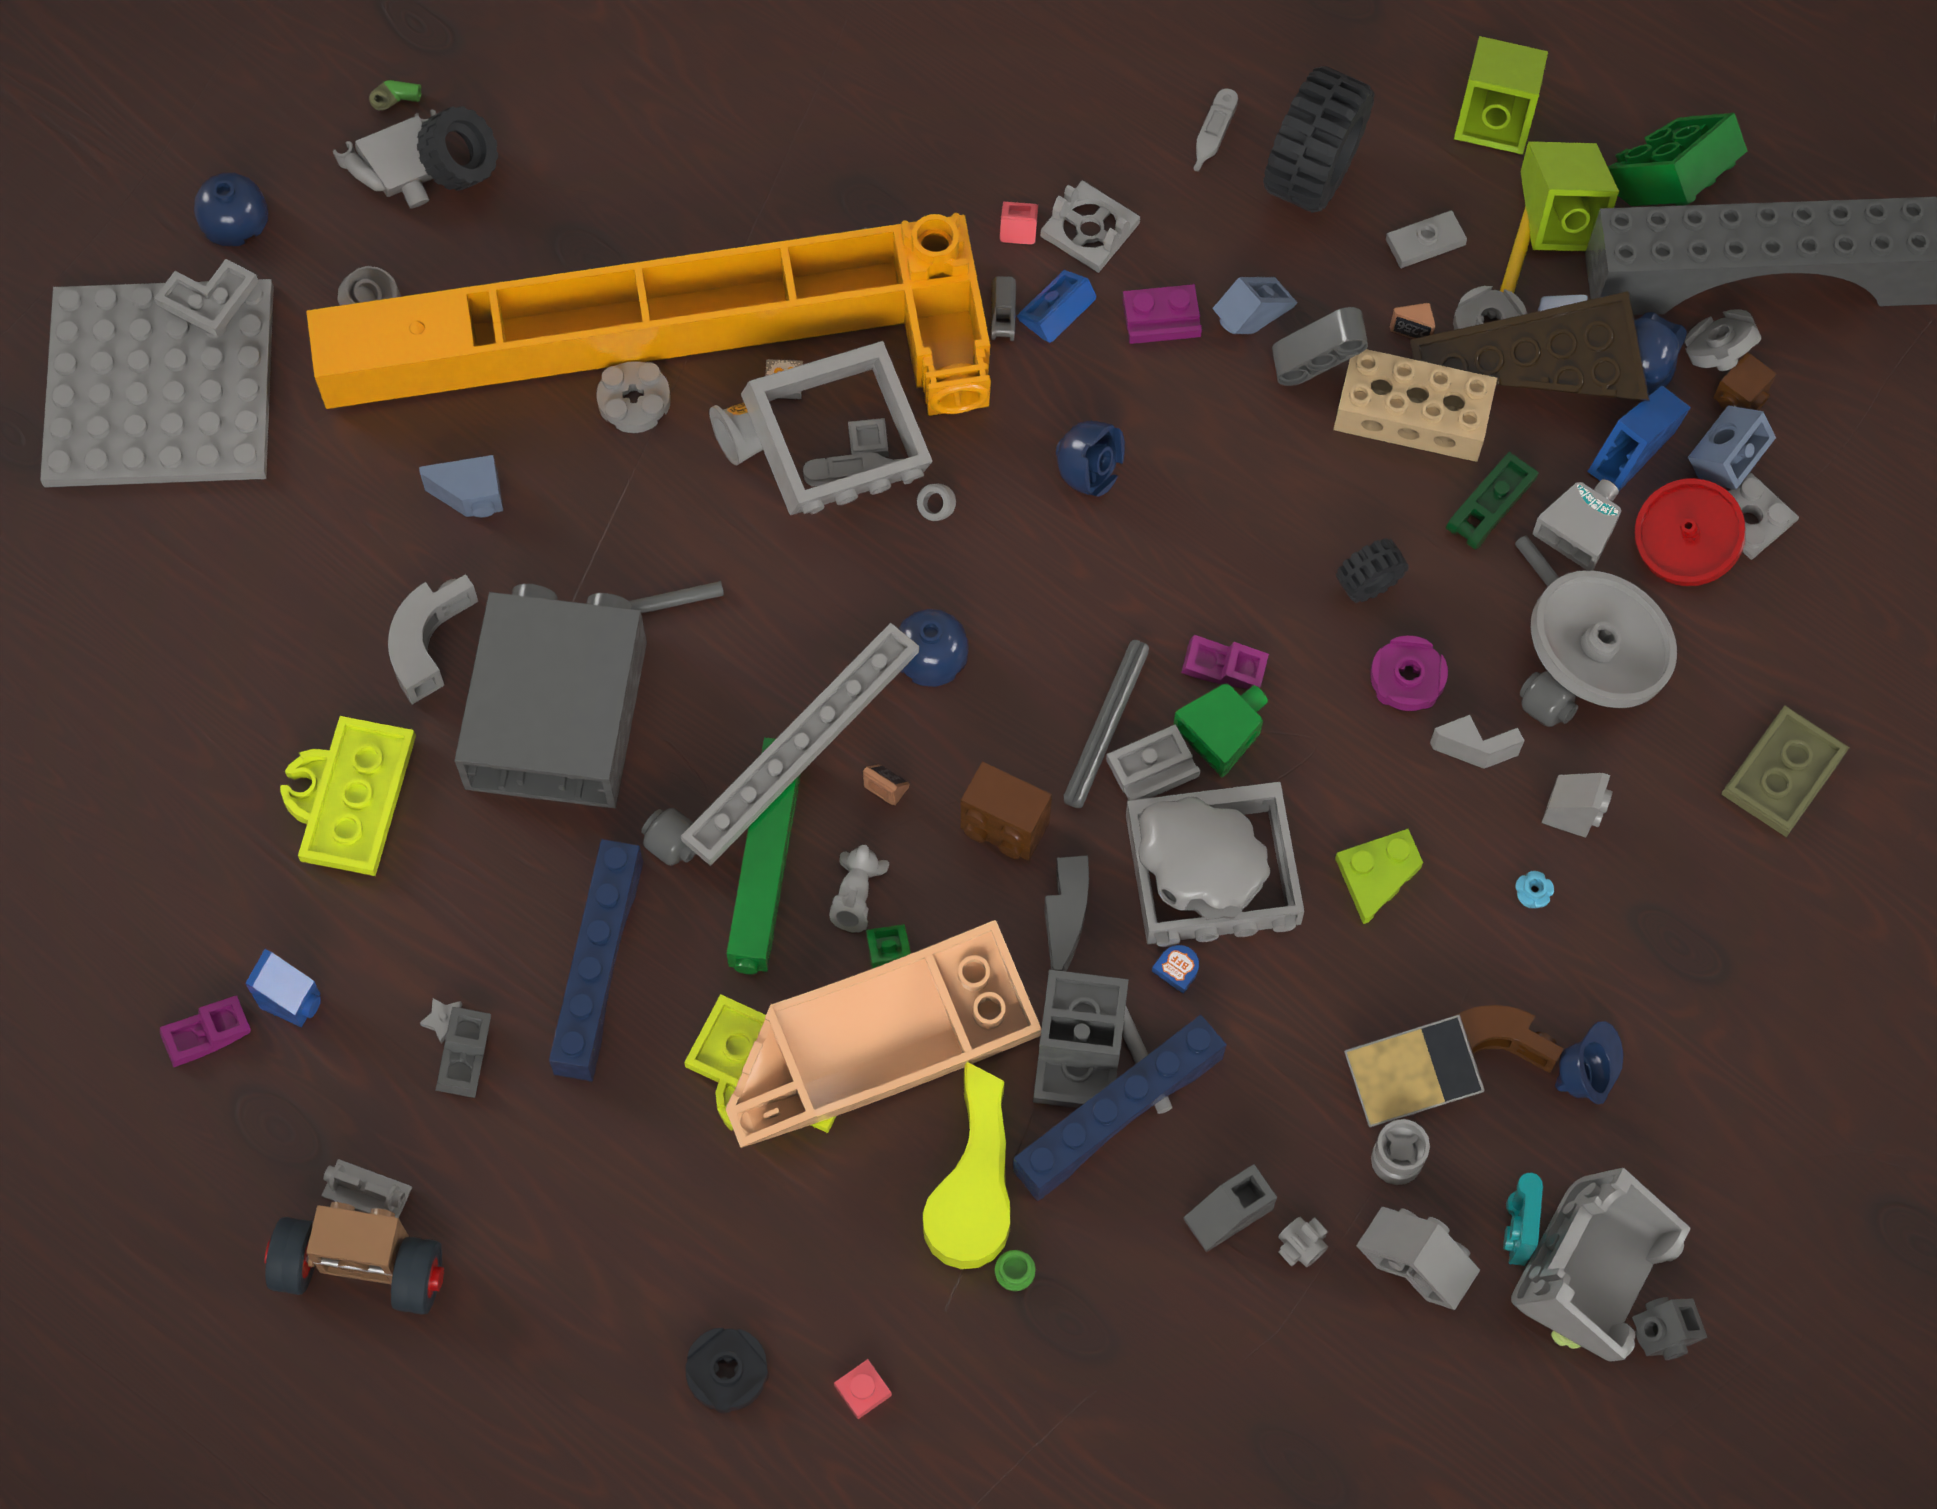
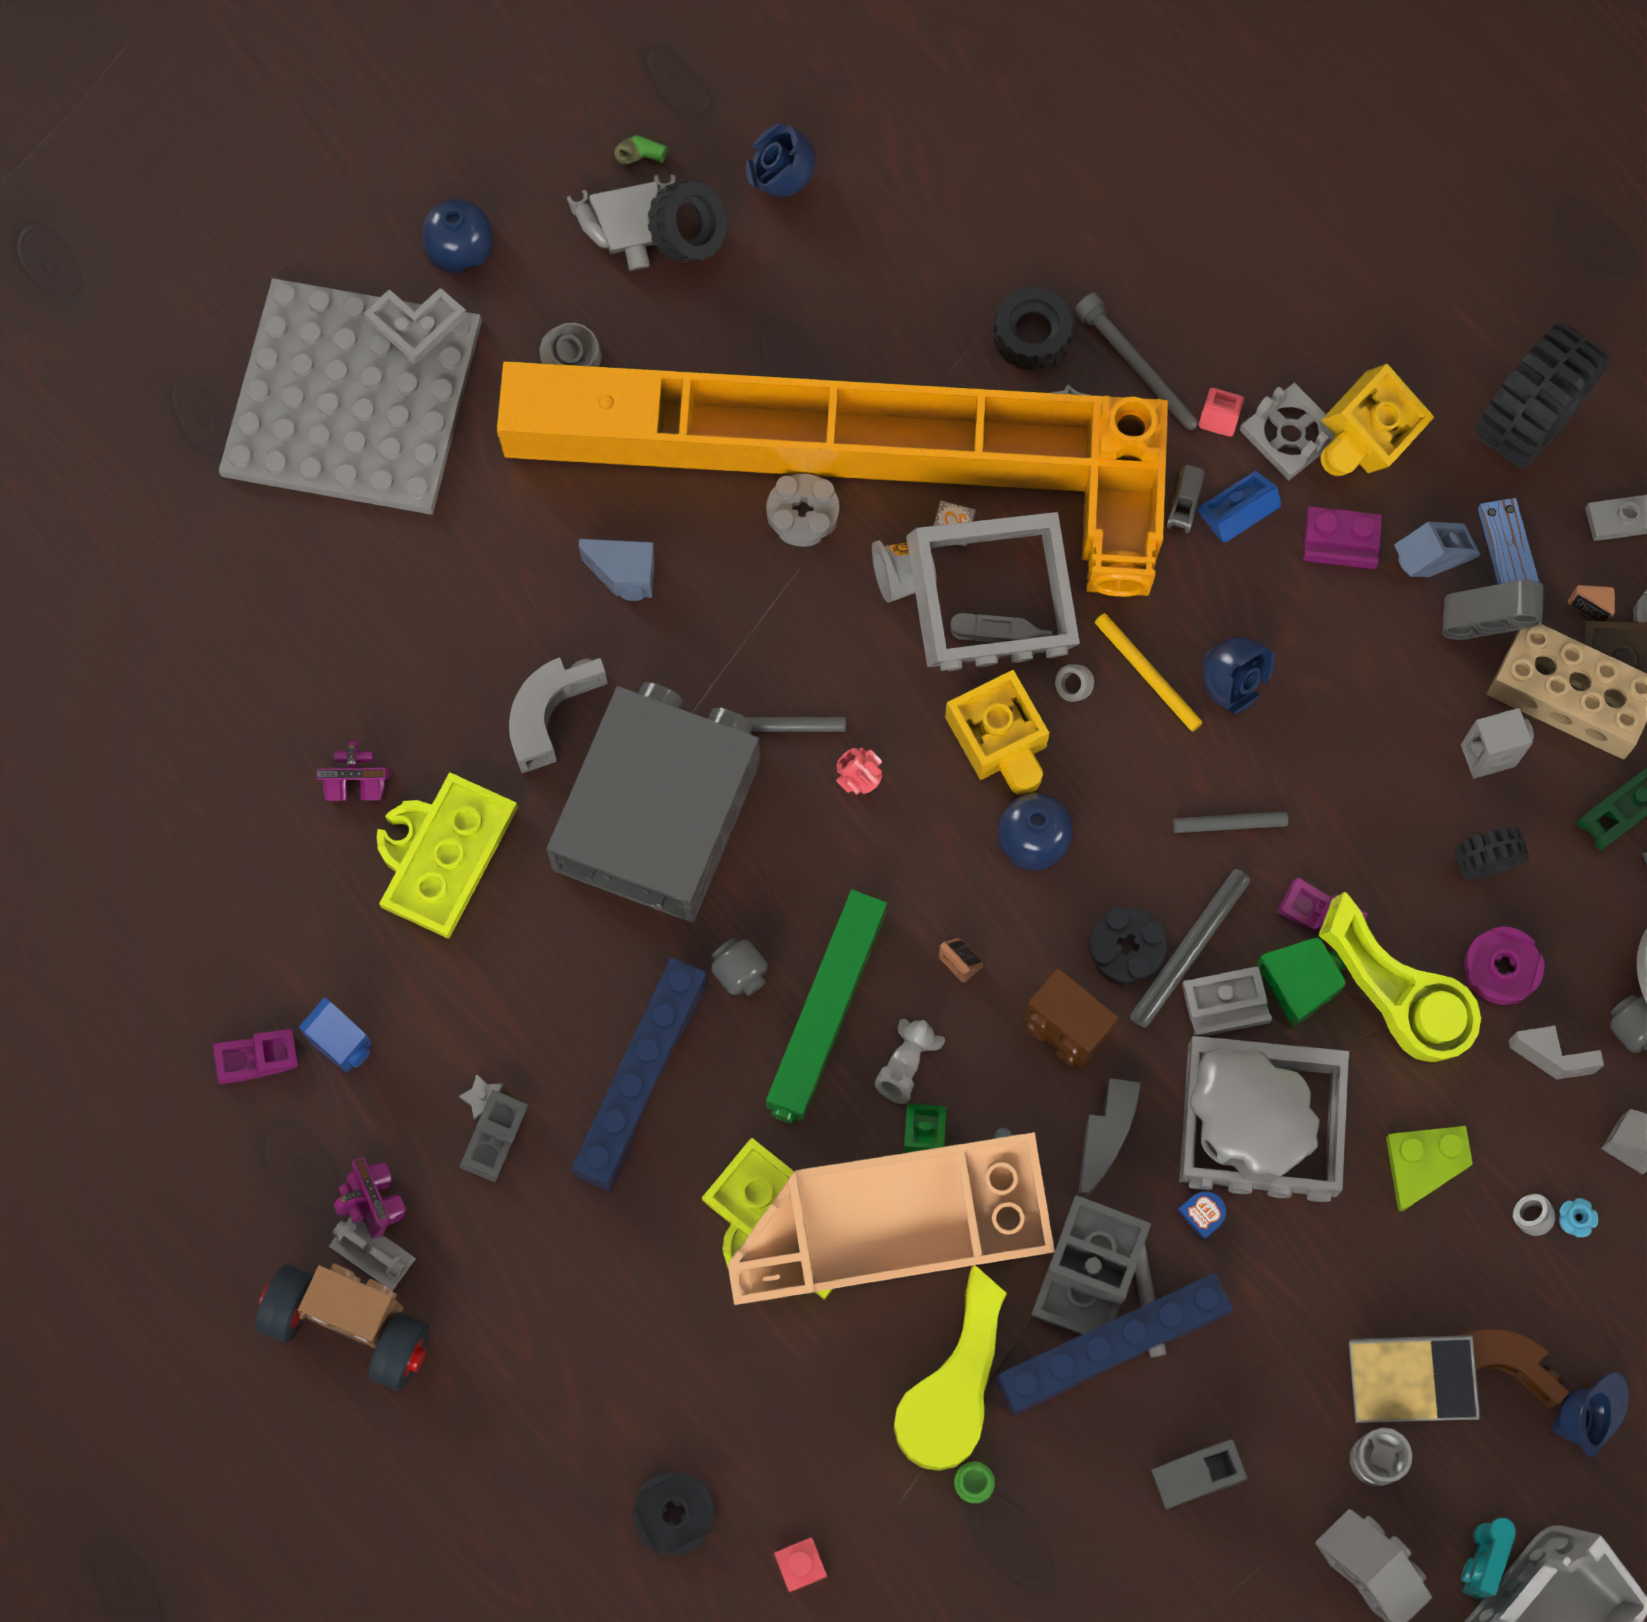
camera: 15 degrees right, 5 degrees up
(227, 746) = (336, 779): none -> magenta hips
(347, 1141) = (363, 1201): none -> magenta hips
(537, 75) = (782, 161): none -> dark blue cylinder
(745, 627) = (859, 771): none -> coral gear
(799, 744) = (884, 905): light grey plate -> none
(819, 155) = (1033, 301): none -> black tyre
(868, 437) = (1022, 601): light grey tile -> none
(872, 154) = (1091, 311): none -> dark grey piece
(887, 557) = (1000, 731): none -> yellow brick
(1005, 477) = (1148, 672): none -> yellow bar
(1033, 717) = (1107, 954): none -> black plate
(1117, 599) = (1230, 822): none -> dark grey bar
(1165, 200) = (1373, 423): none -> yellow brick
(1215, 125) = (1441, 352): light grey piece -> none
(1303, 1241) = (1263, 1524): light grey gear -> none
(1317, 281) = (1507, 541): none -> medium blue tile
(1343, 730) = (1424, 1011): none -> neon yellow animal
(1353, 467) = (1497, 742): none -> light grey brick
(1502, 902) = (1543, 1223): none -> light grey piece

